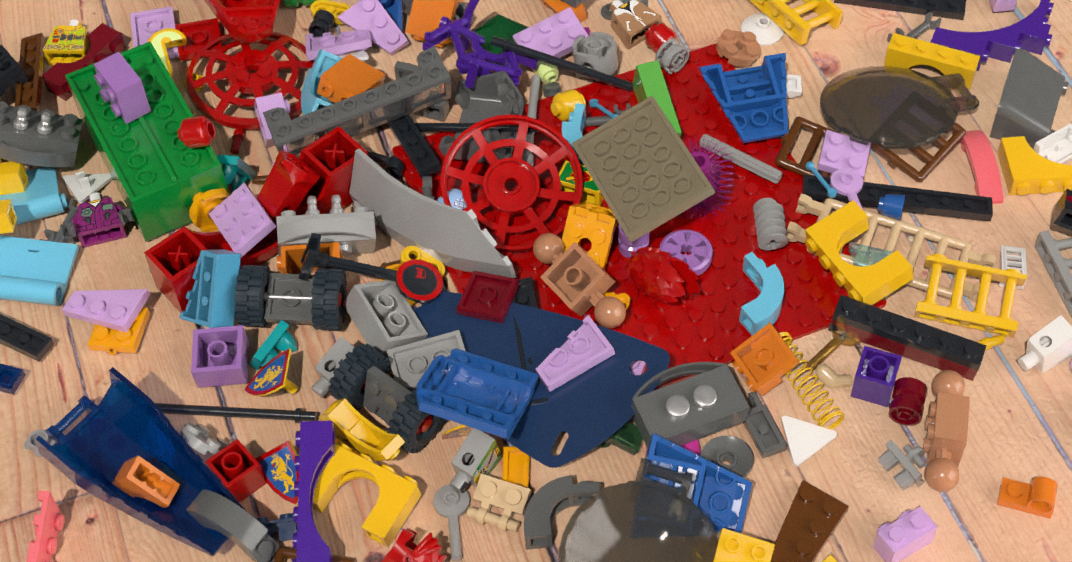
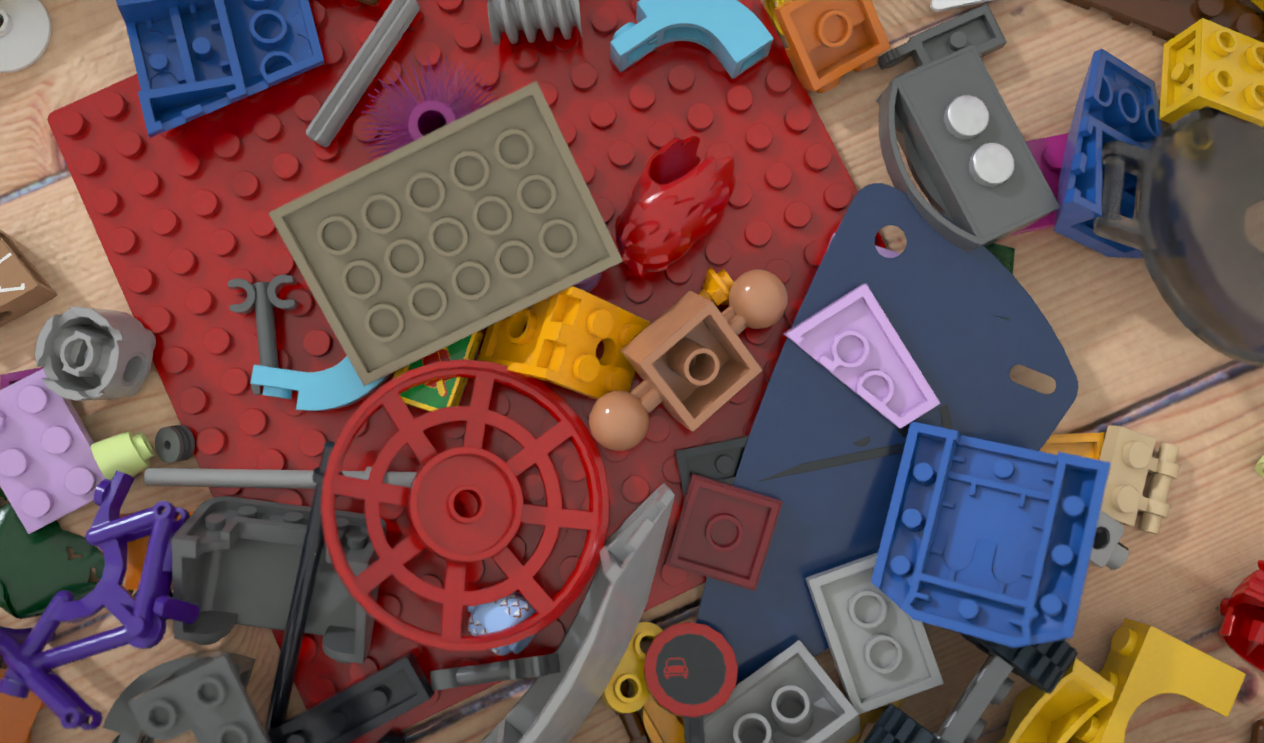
camera: 100 degrees left, 30 degrees up
(452, 505) = (1143, 561): light grey piece -> none
(548, 503) = (1129, 395): dark grey arch -> none
(561, 63) = (90, 536): black bar -> none
(565, 102) = (232, 404): yellow head -> none
(594, 103) = (219, 354): dark azure hinge -> none
(650, 82) = (222, 226): bright green slope -> none
(657, 35) = (39, 224): red head -> none
(673, 56) = (100, 193): light grey wheel -> none
(692, 242) = (616, 146): medium lavender wheel -> none
(729, 450) = (1036, 92): dark grey dish -> none
(732, 40) = (50, 57): nougat plate -> none

